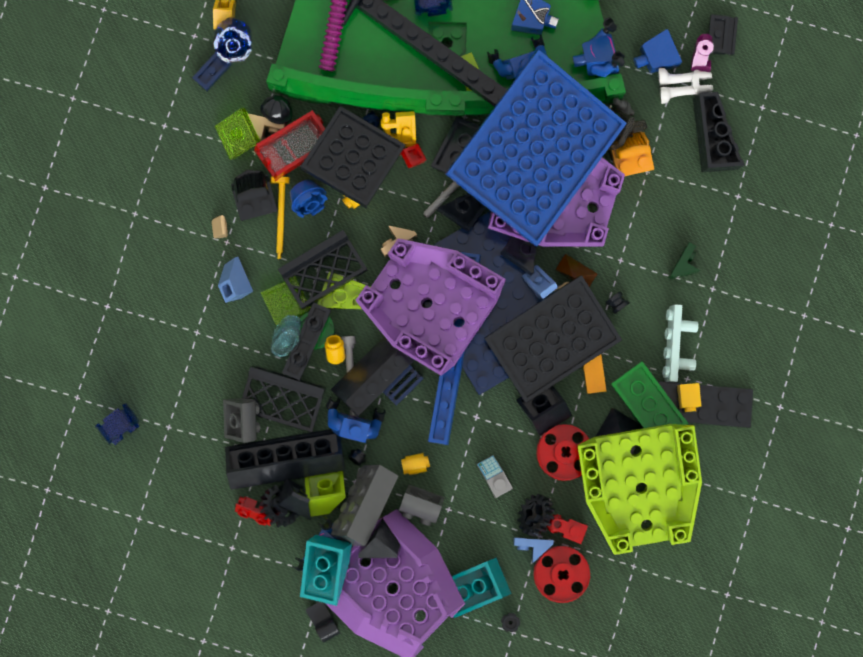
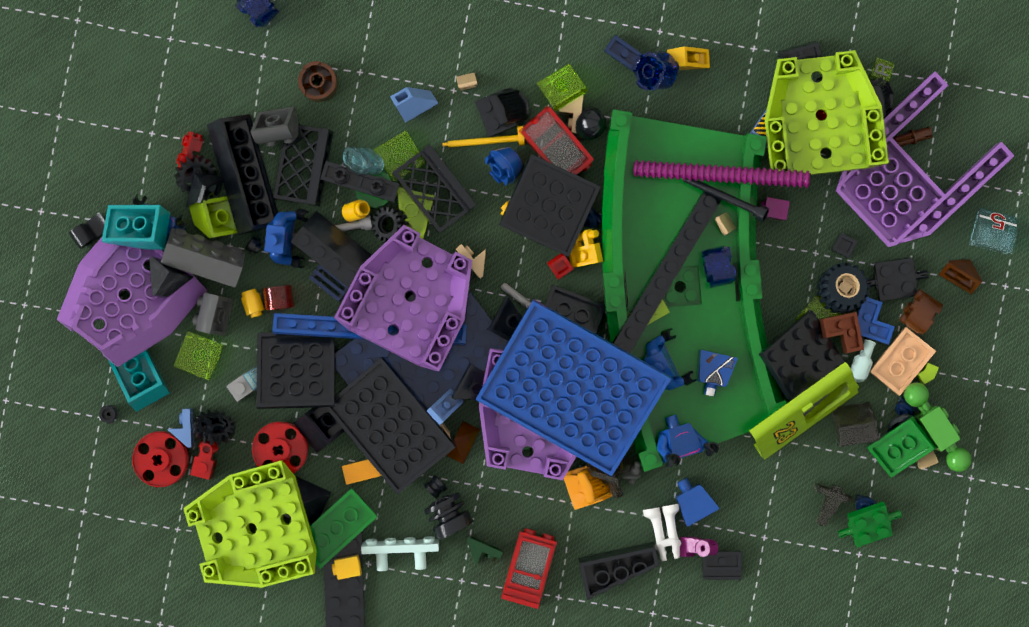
camera: 85 degrees right, 5 degrees up
(196, 382) = (308, 77): none -> reddish brown brick
(348, 327) = (381, 219): none -> black tyre
(412, 436) = (278, 297): none -> clear red piece
(461, 525) = (198, 355): none -> clear neon green plate
(488, 427) = (295, 371): none -> black plate
(645, 292) = (448, 515): none -> black wheel
(707, 220) = (529, 568): none -> red door

